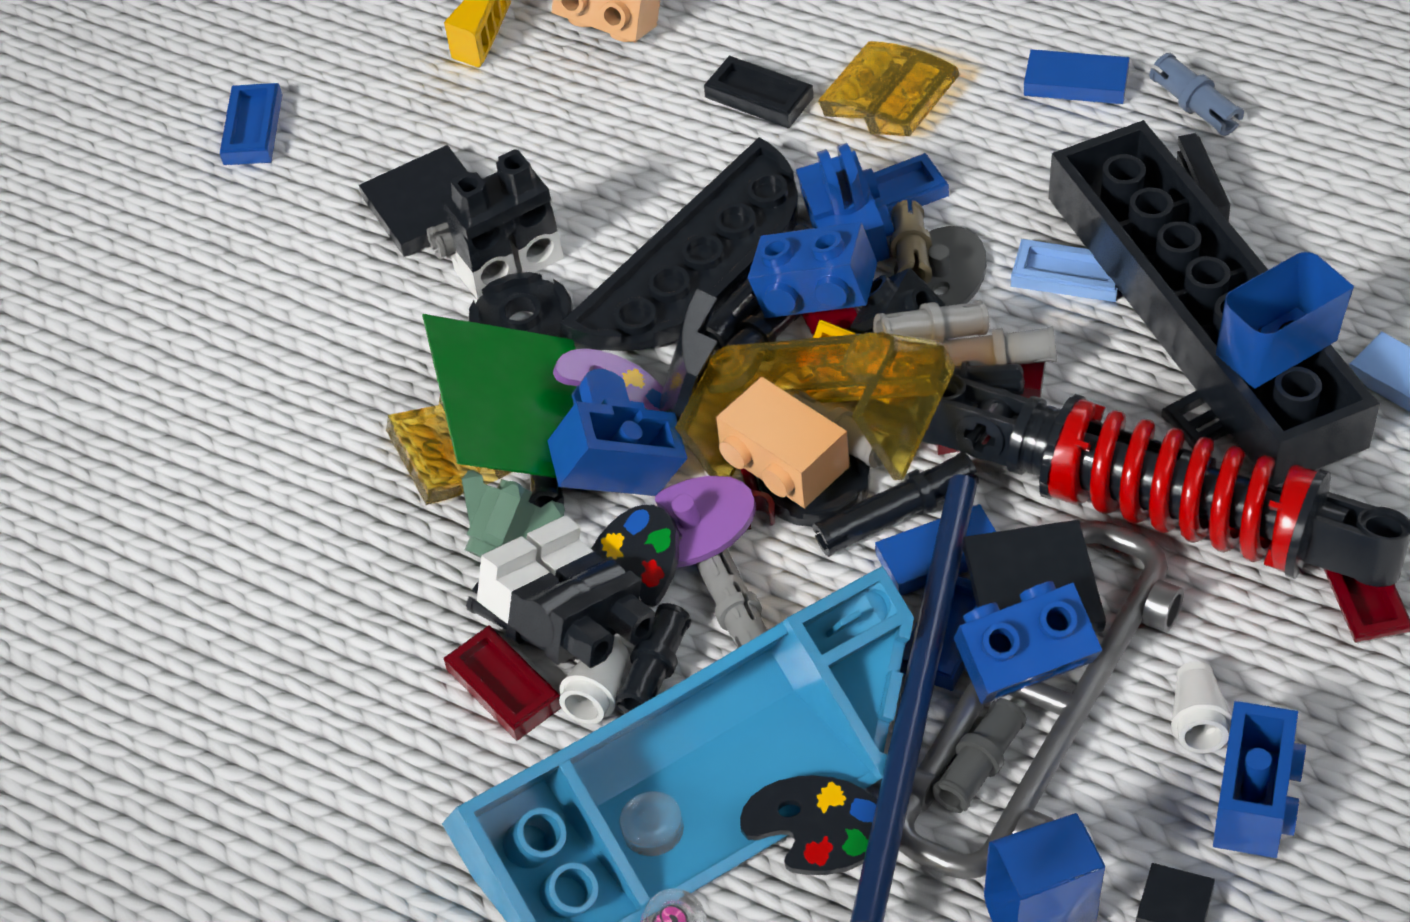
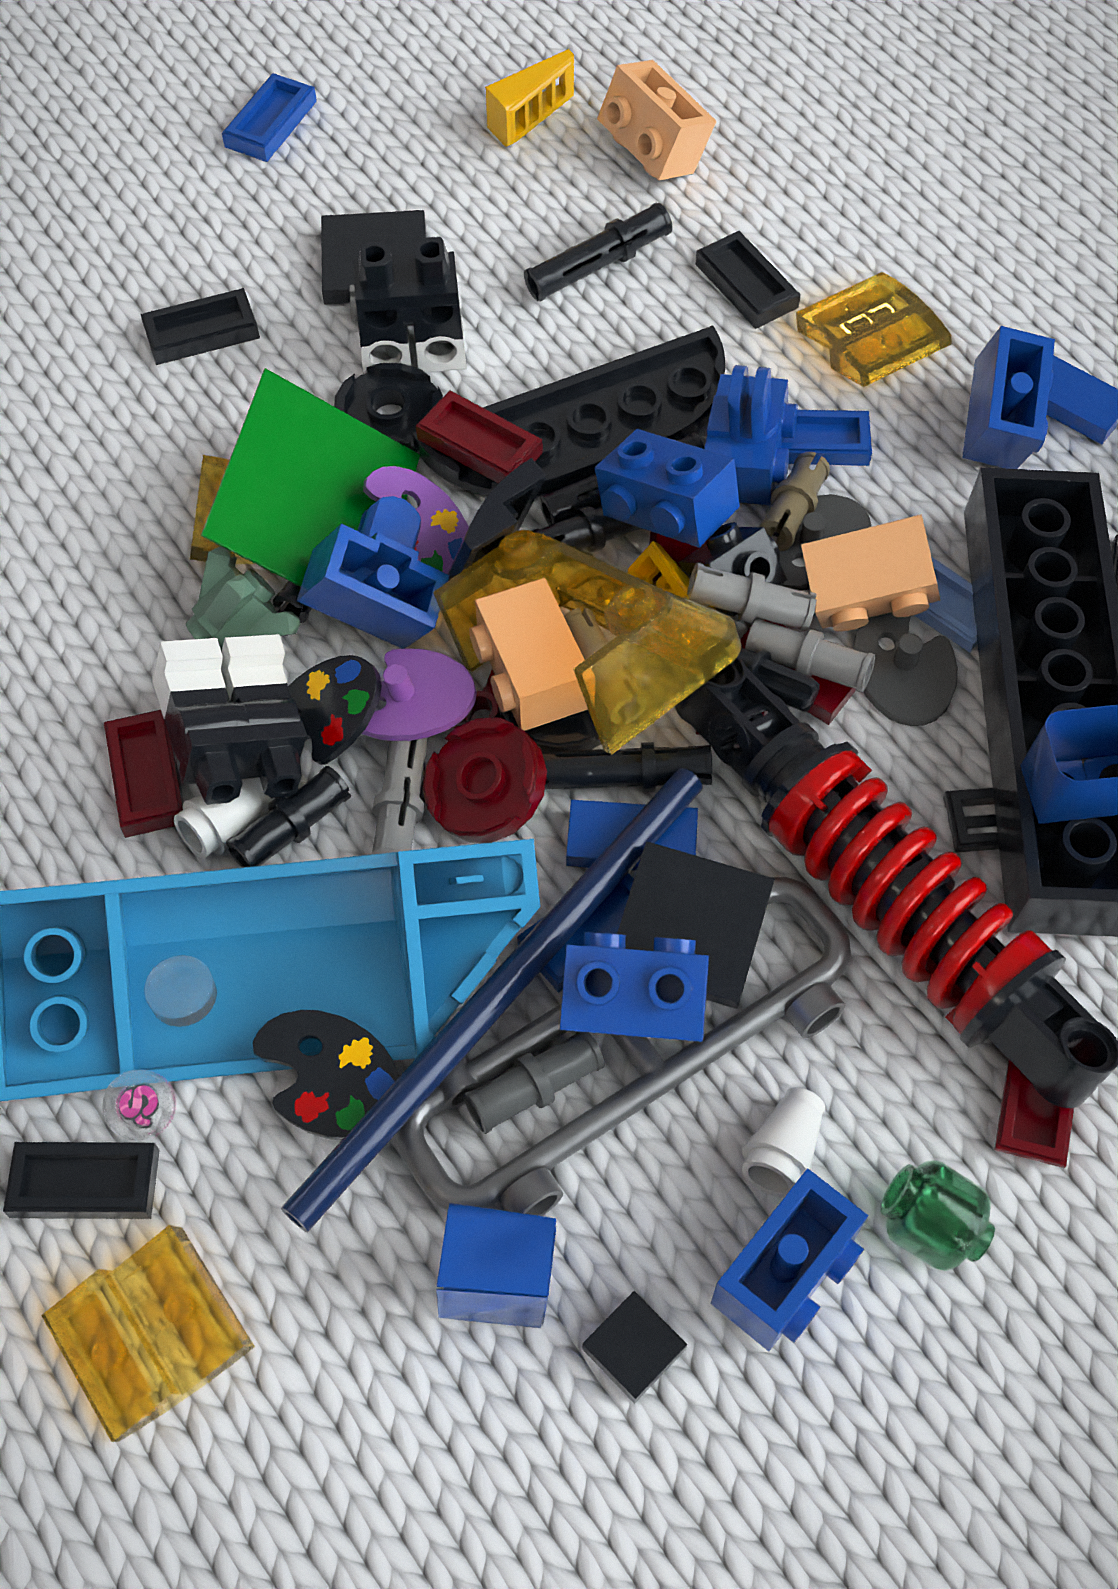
camera: 20 degrees right, 10 degrees up
(306, 318) = (200, 326): none -> black tile
(624, 302) = (477, 437): none -> dark red tile
(632, 104) = (615, 243): none -> black pin
(797, 555) = (485, 780): none -> dark red tile
(1013, 268) = (871, 574): none -> light nougat brick
(1036, 95) = (1009, 398): none -> blue brick
(1085, 335) = (912, 679): none -> dark grey piece
(1343, 701) = (938, 1215): none -> clear green head

